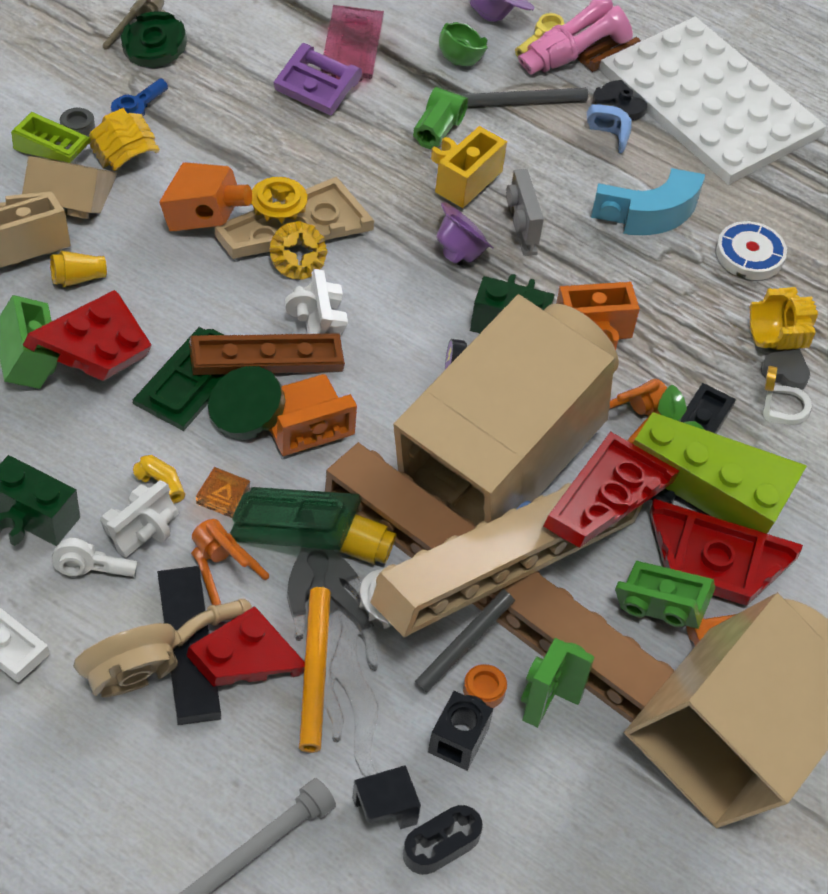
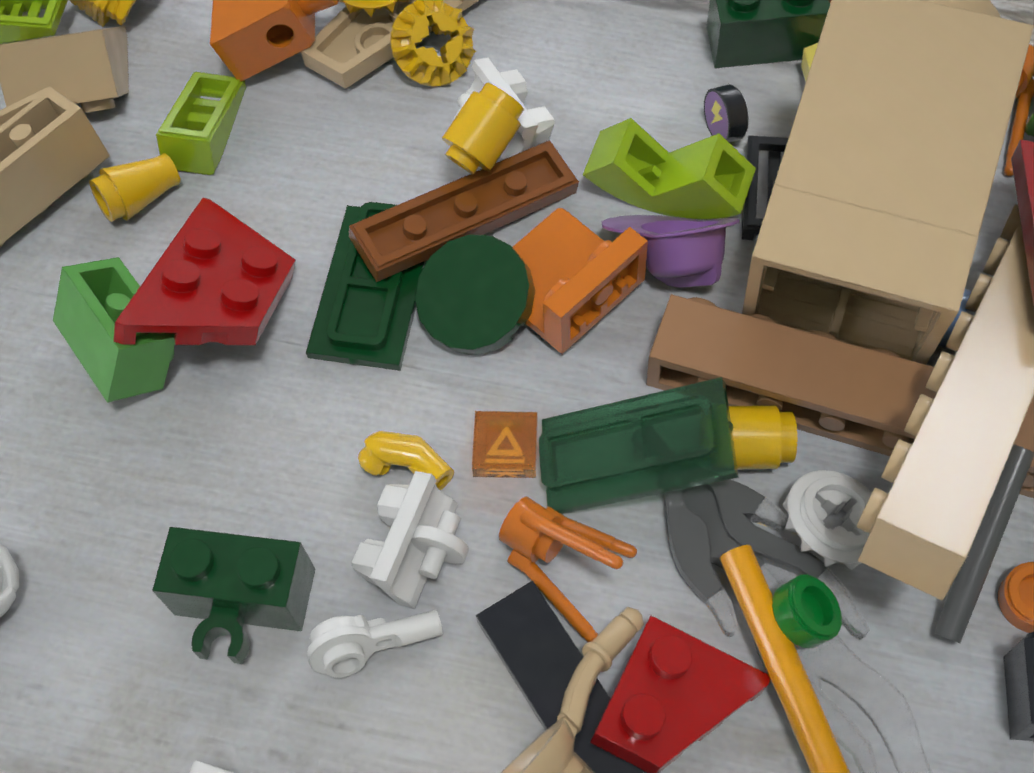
camera: 10 degrees left, 10 degrees up
(131, 249) = (199, 127): none -> lime slope
(295, 309) = (483, 129): none -> yellow brick
(343, 636) = (807, 611): none -> green tile
(375, 420) = (679, 249): none -> medium lavender piece
(389, 376) = (690, 182): none -> lime brick

